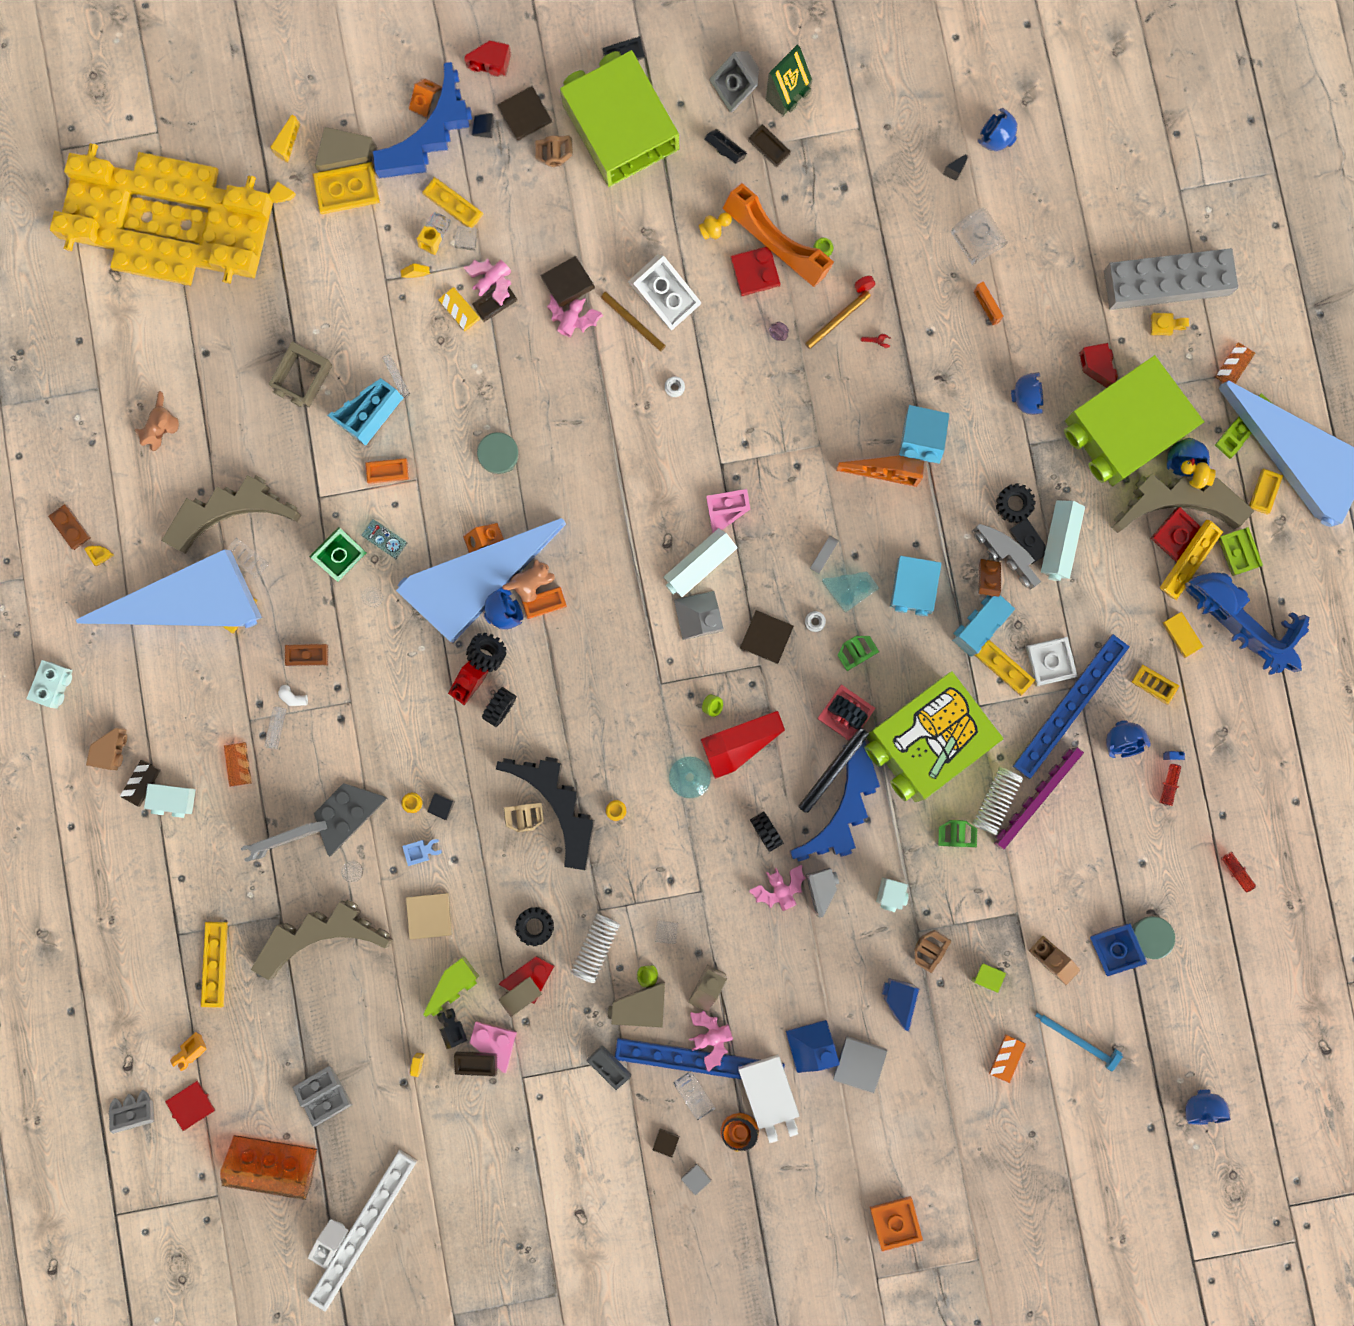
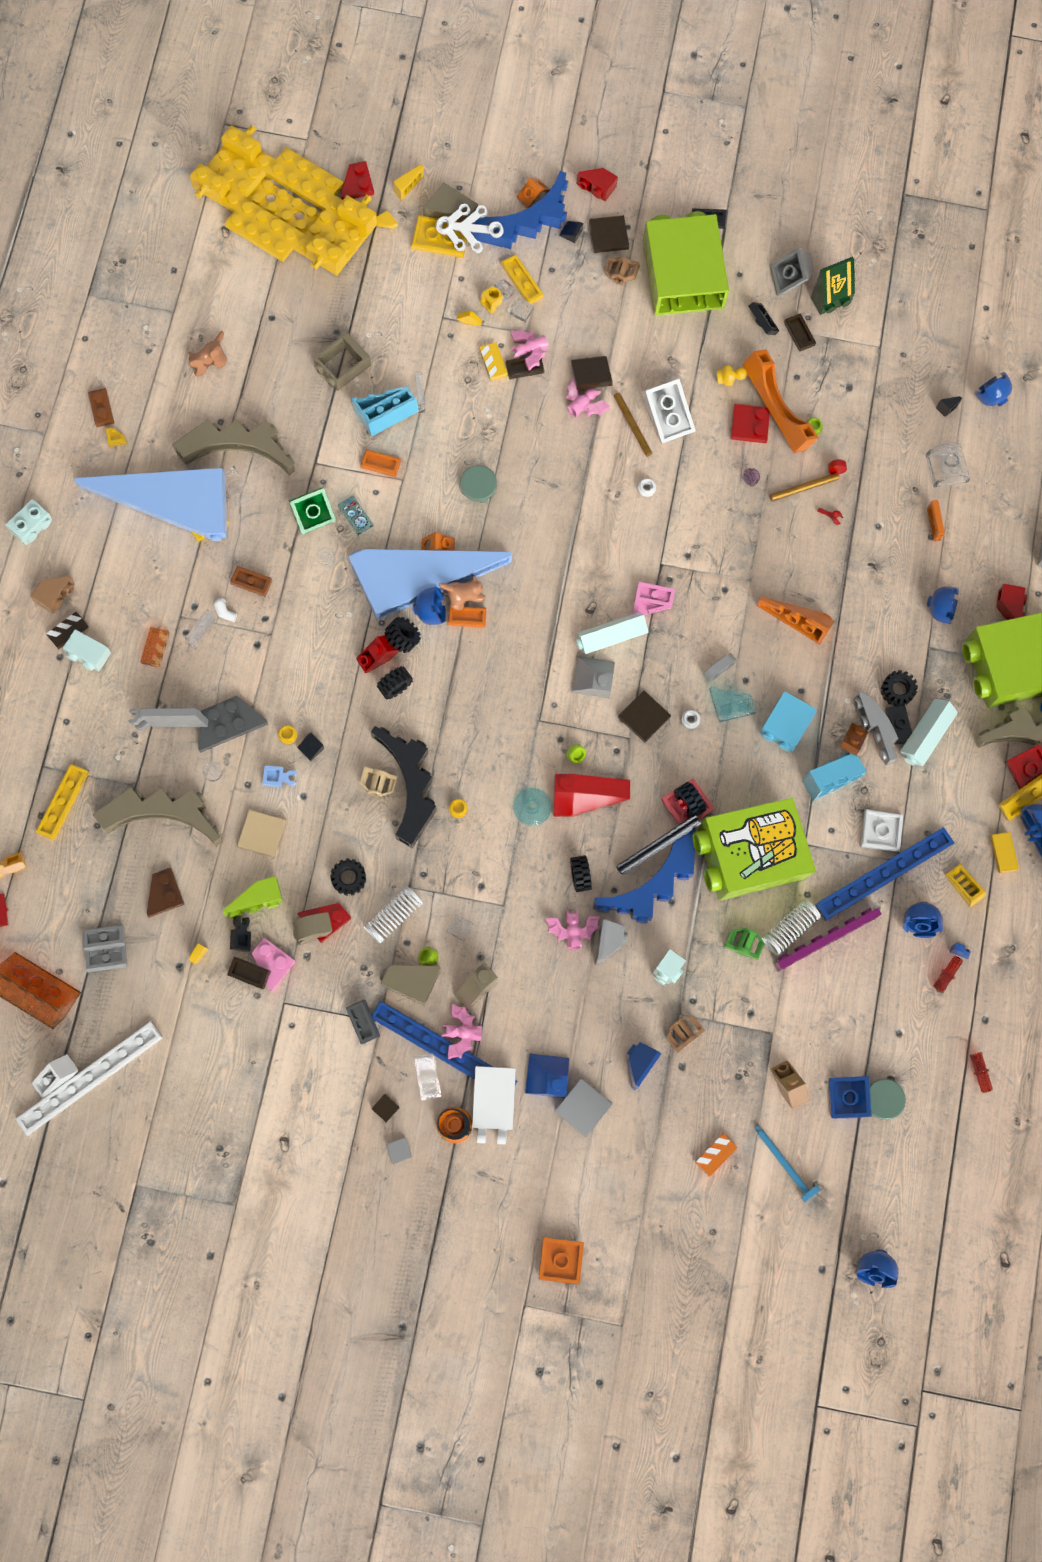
camera: 10 degrees right, 10 degrees down
(231, 161) = (357, 181): none -> red wing
(356, 1016) = (163, 893): none -> reddish brown wing
(370, 169) = (467, 227): none -> white plant
(864, 656) = (717, 764): bright green piece -> none
(924, 434) = (842, 601): medium azure brick -> none
(989, 977) = (726, 1075): lime panel -> none
(1004, 667) = (839, 820): yellow tile -> none

